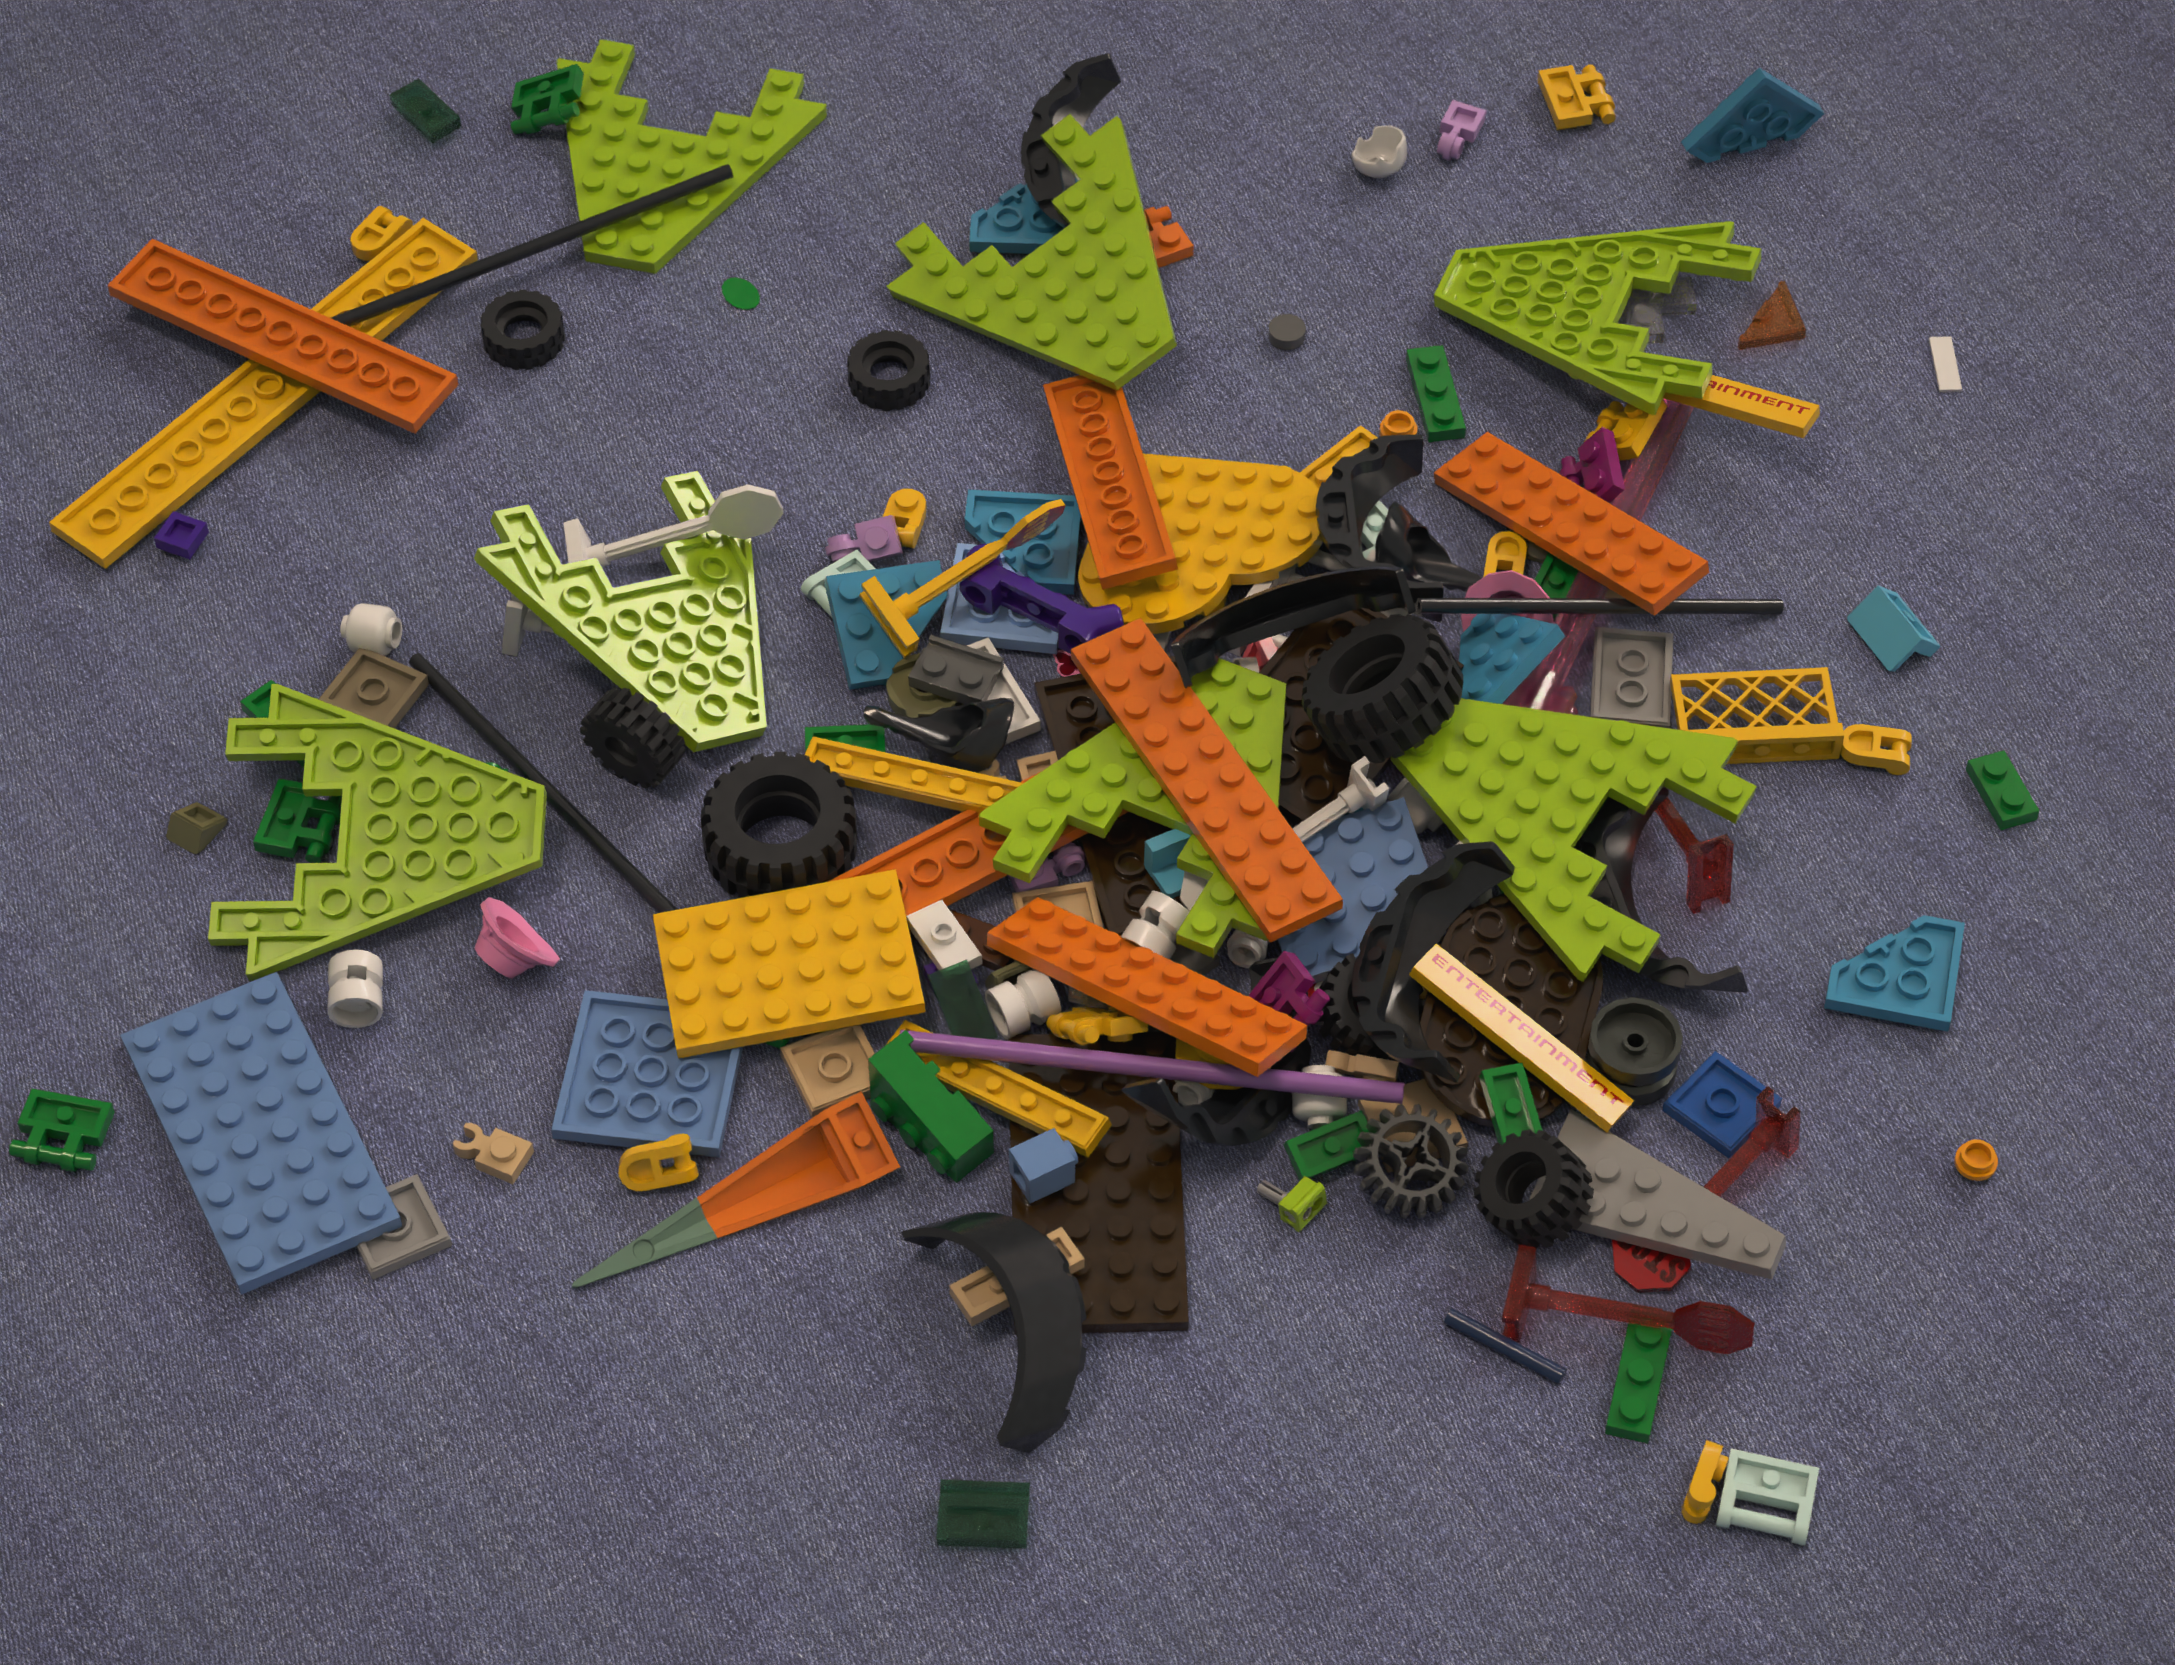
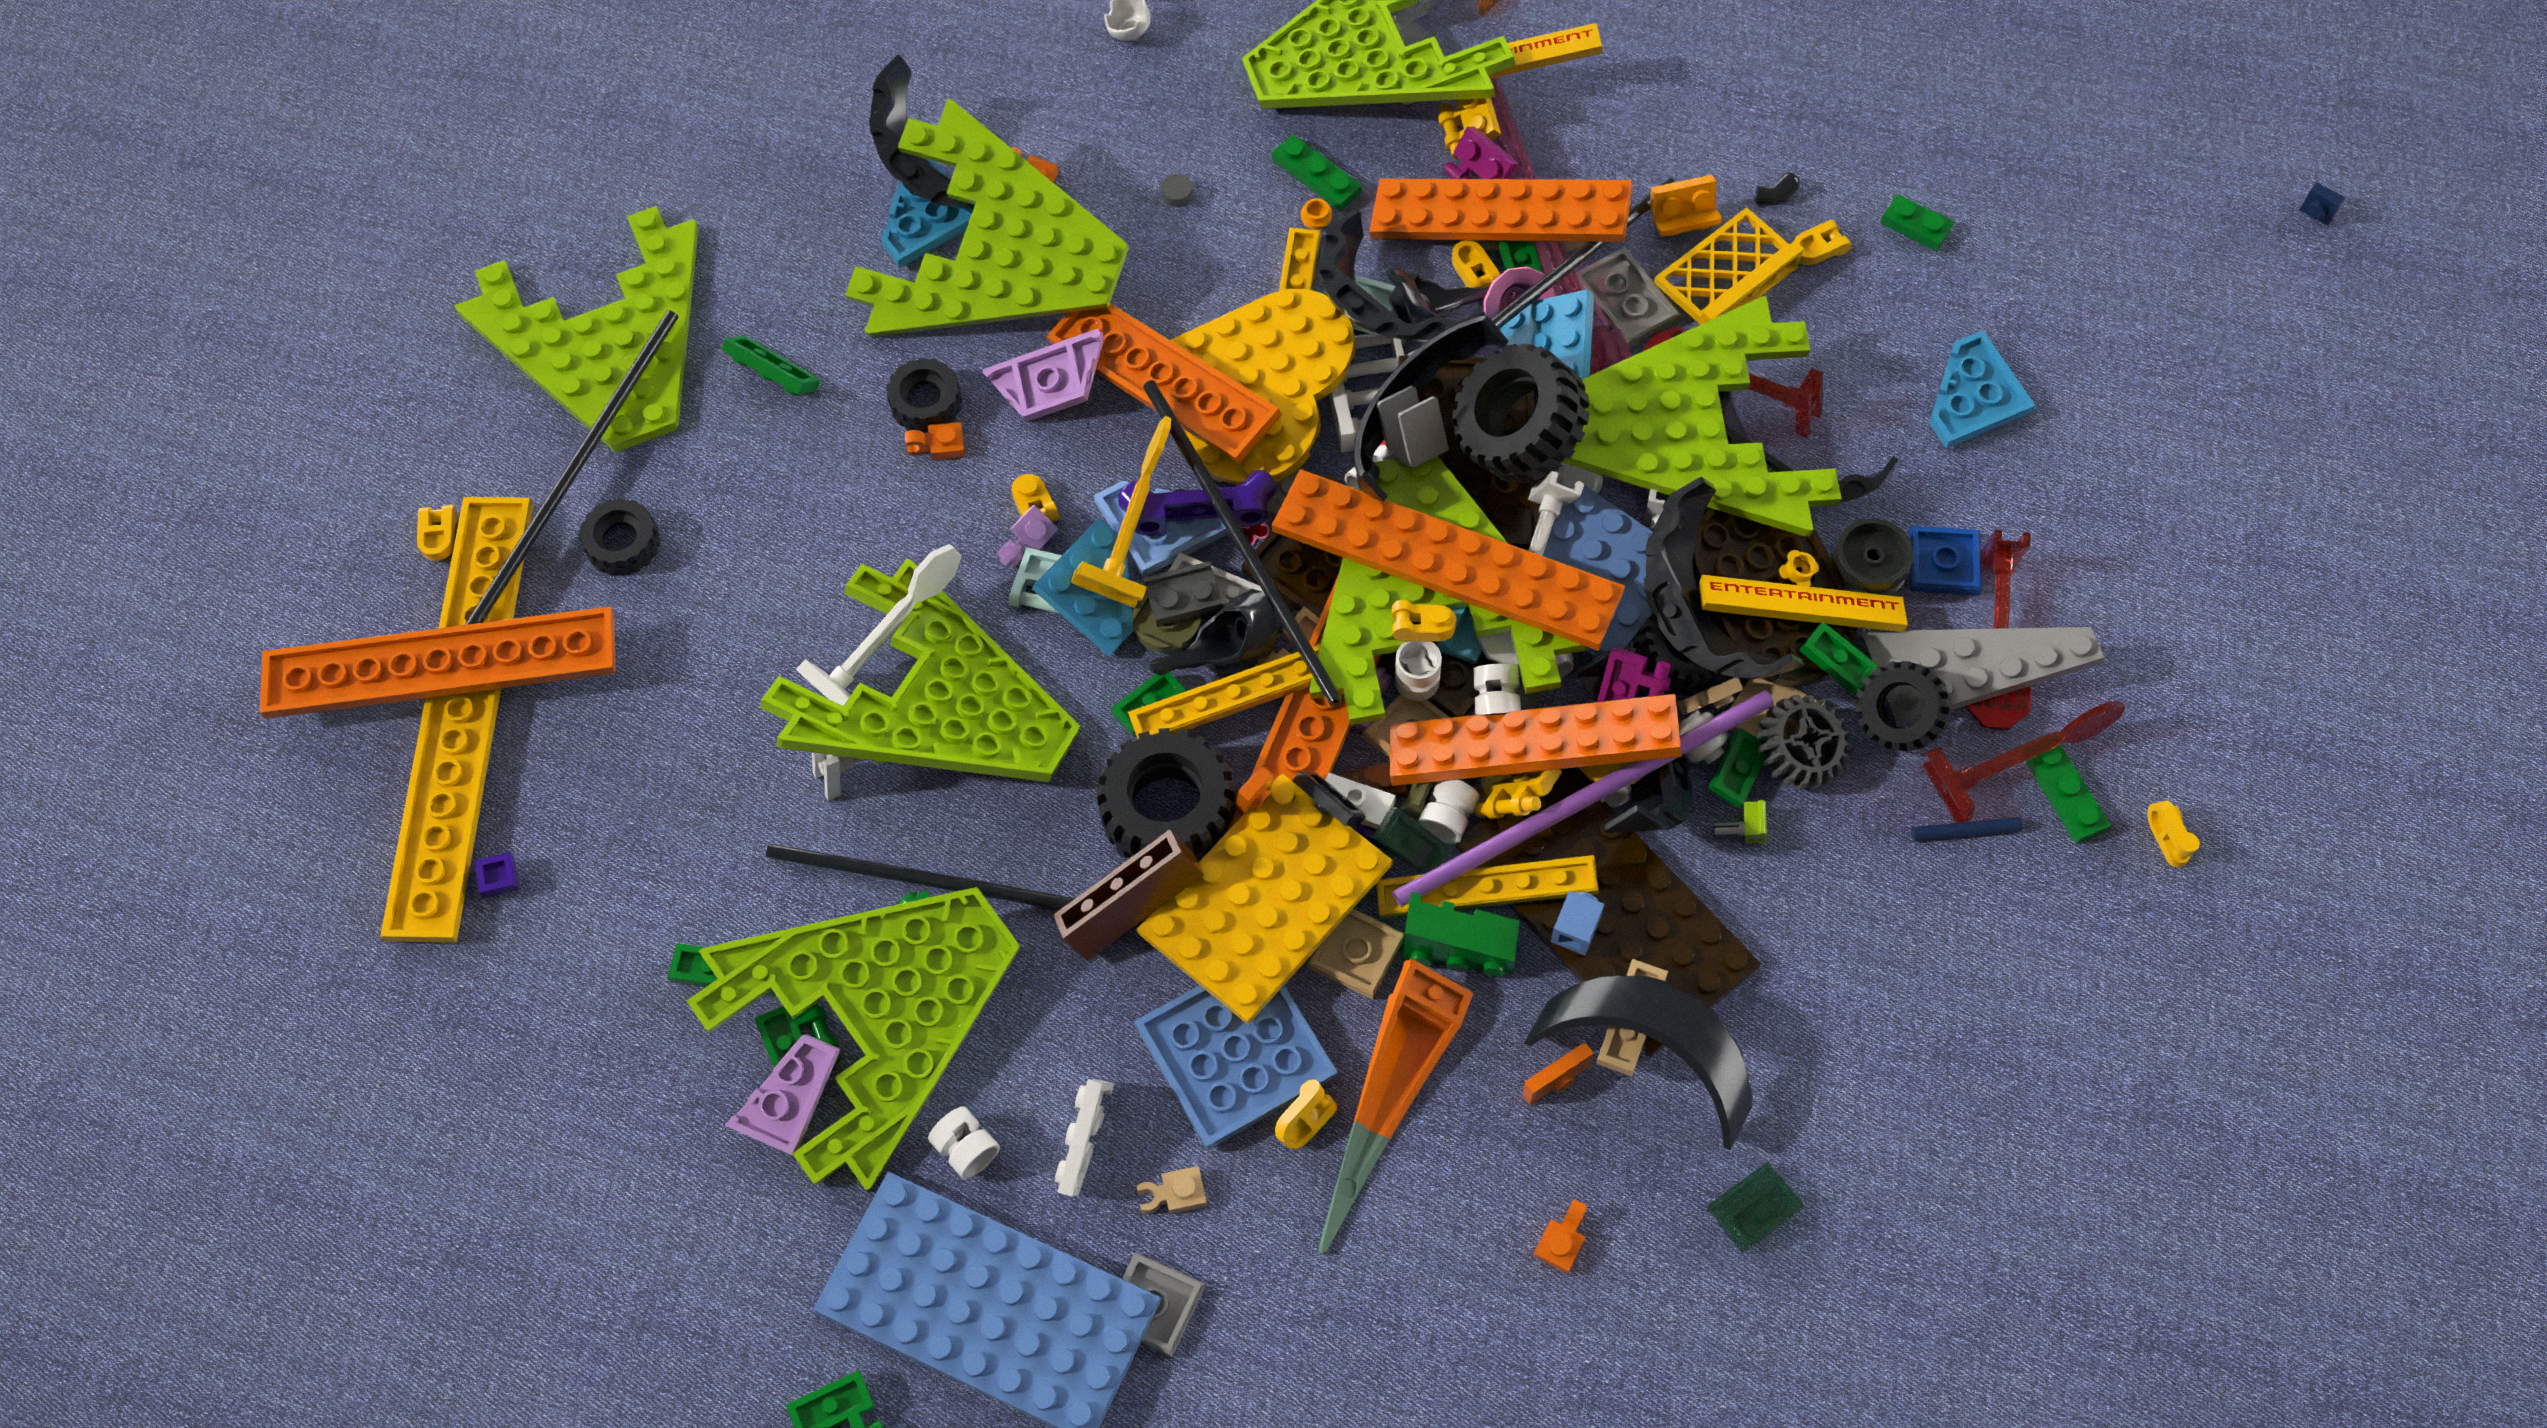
camera: 35 degrees left, 10 degrees up
(194, 827) = (717, 1100): olive slope -> none
(244, 859) = (787, 1099): none -> lavender wing
(372, 628) = (719, 851): white head -> none
(376, 687) = (762, 898): dark tan plate -> none
(425, 110) = (385, 410): clear green plate -> none
(467, 1039) = (1090, 1118): none -> white wing
(510, 942) = (1050, 1024): bright pink hat -> none
(546, 91) = (472, 337): green plate -> none
(632, 737) = (1002, 803): black tyre -> none
(667, 879) = (1128, 895): none -> reddish brown brick
(740, 293) = (757, 404): green sticker -> none
(778, 265) = (770, 365): none -> green plate
(785, 1423) = (1561, 1241): none -> orange plate
(848, 859) = (1254, 791): none -> orange plate
(868, 420) = (943, 441): none -> orange plate
(910, 1283) = (1558, 1074): none -> orange plate
(913, 913) = (1329, 799): none -> black plate
(1012, 419) = (1049, 376): none -> lavender wing
(1036, 654) = (1244, 546): none -> black piece
(1048, 557) = (1119, 452): dark azure plate -> none
(1100, 862) = (1417, 670): none -> white wheel
(1141, 823) = (1436, 622): none -> yellow plate
(1274, 642) = (1412, 428): none -> light grey piece
(1546, 994) = (1804, 562): none -> yellow plate
(1765, 629) = (1684, 206): none -> light orange bracket
(1768, 1483) = (2214, 802): light aqua plate -> none
(1885, 677) = (1780, 192): none -> black arm
(1891, 628) = (1755, 155): medium azure panel -> none
(1976, 1160) = (2128, 490): light orange plate -> none

